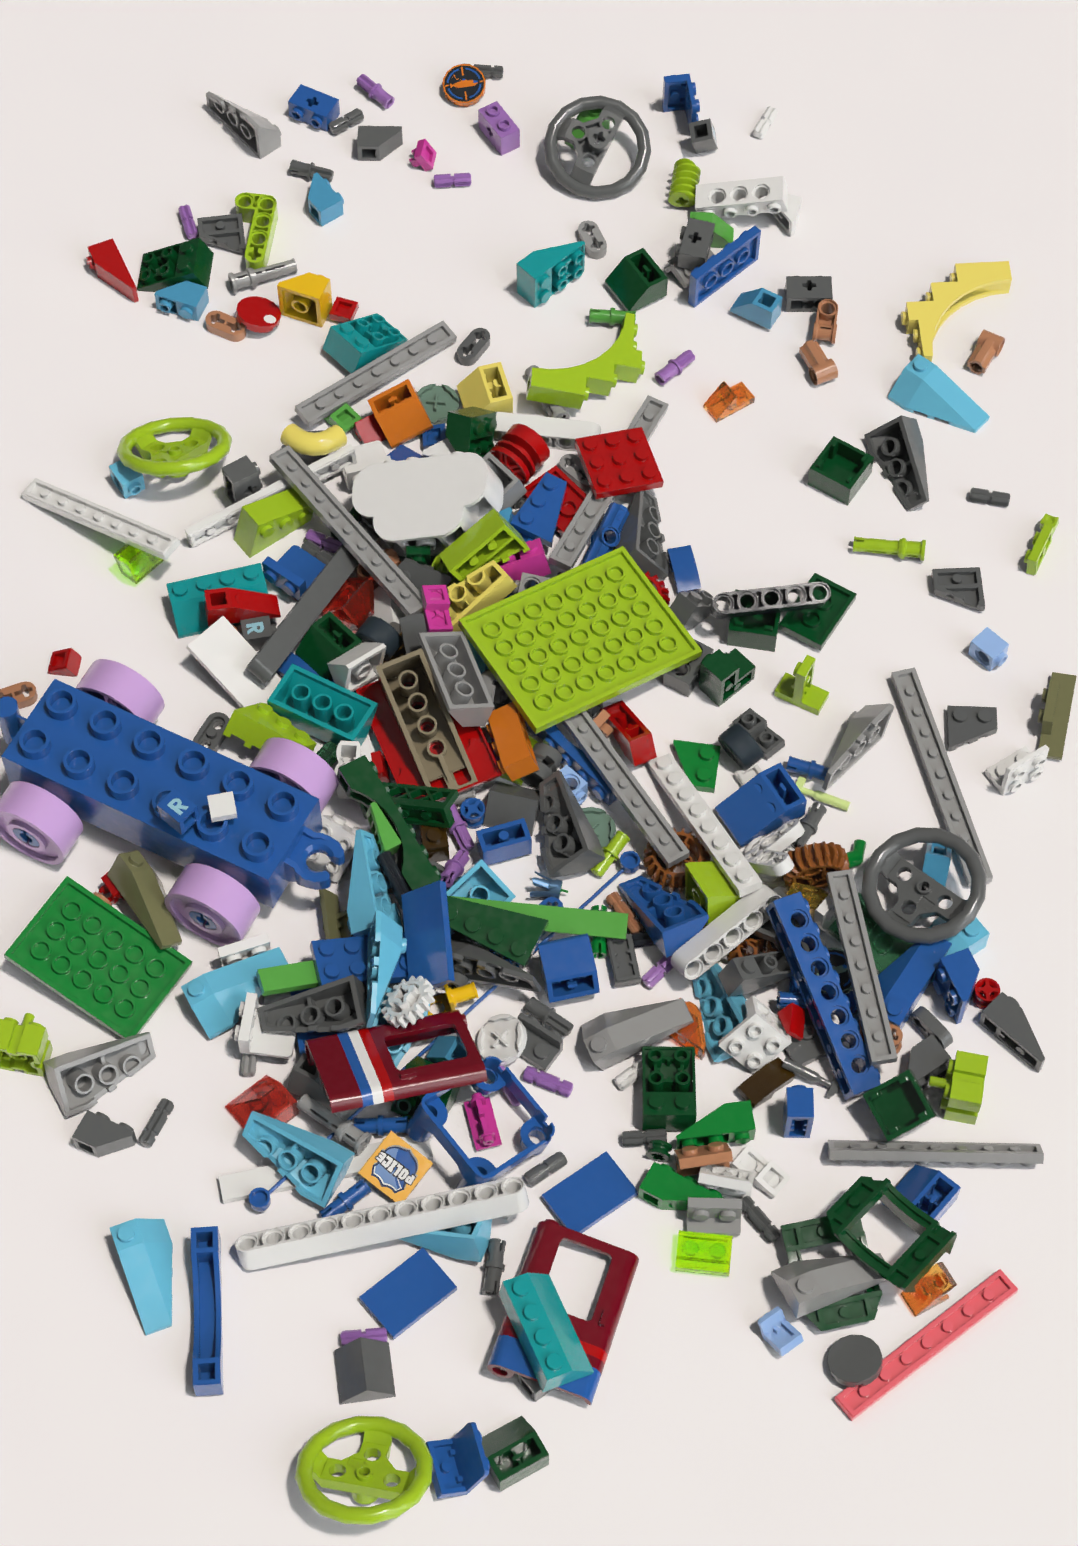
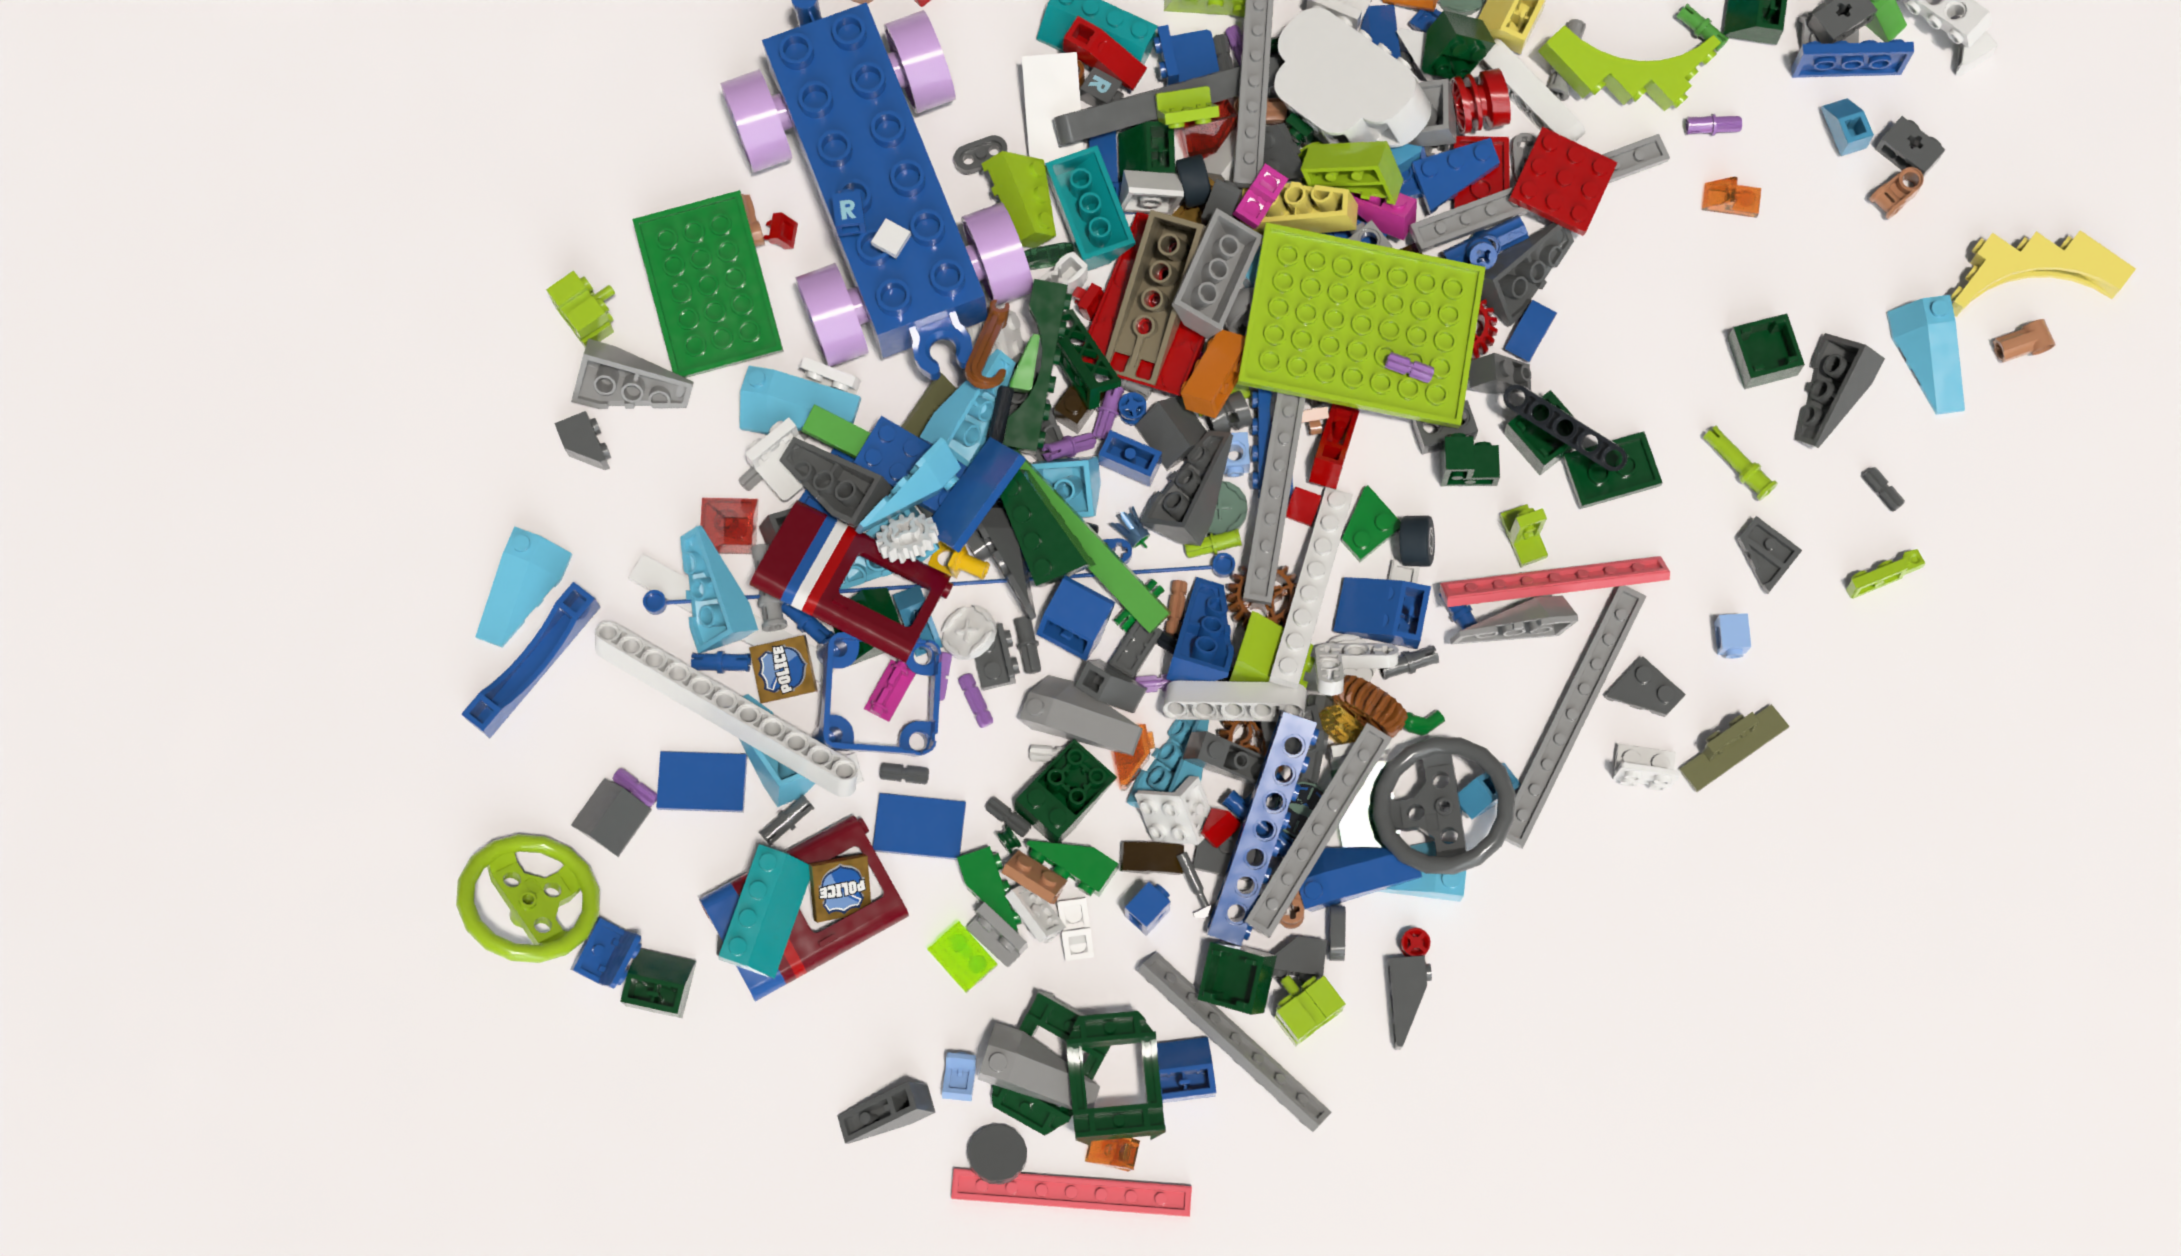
camera: 45 degrees right, 15 degrees up
(145, 896) = (797, 249): olive wedge -> none
(156, 1122) = (636, 465): dark grey axle -> none
(330, 593) = (1185, 106): none -> lime bracket
(333, 822) = (983, 347): none -> dark orange piece
(577, 1275) = (839, 887): none -> tile
(606, 544) = (1478, 248): none -> wheel
(632, 639) = (1403, 365): none -> medium lavender piece
(633, 993) = (1110, 686): none -> dark grey slope
(649, 782) = (1303, 506): none -> red slope
(753, 1399) = (887, 1112): none -> dark grey slope
(760, 1219) = (1035, 968): dark grey axle -> none
(762, 734) = (1448, 541): dark grey slope -> none
(819, 366) = (1849, 232): nougat piece -> none
(822, 797) = (1451, 651): yellowish green piece -> none
(850, 702) = (1554, 581): none -> coral tile
(956, 982) = (1396, 914): blue slope -> none

